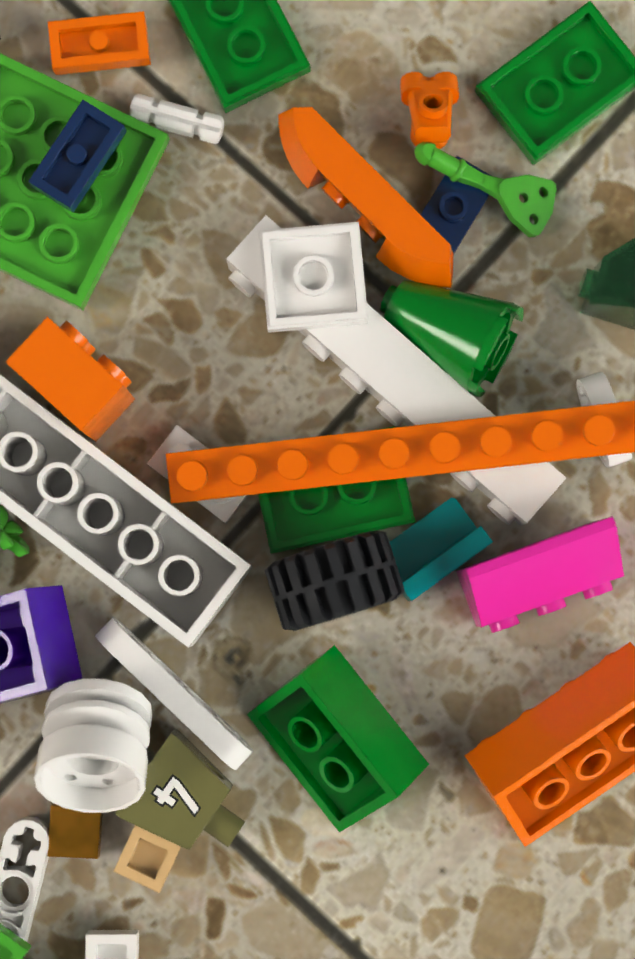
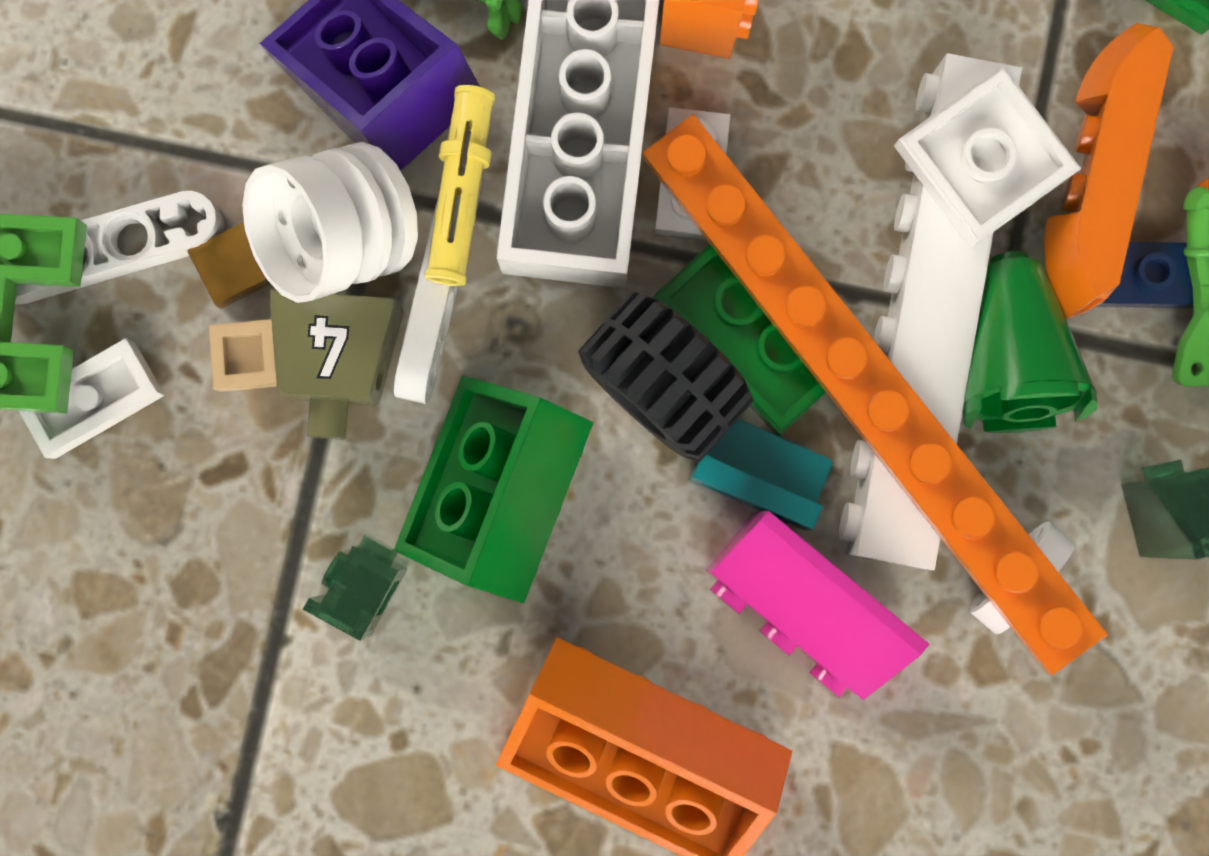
camera: 60 degrees right, 0 degrees up
(74, 604) = (470, 113): none -> light yellow pin
(352, 870) = (358, 588): none -> clear green brick

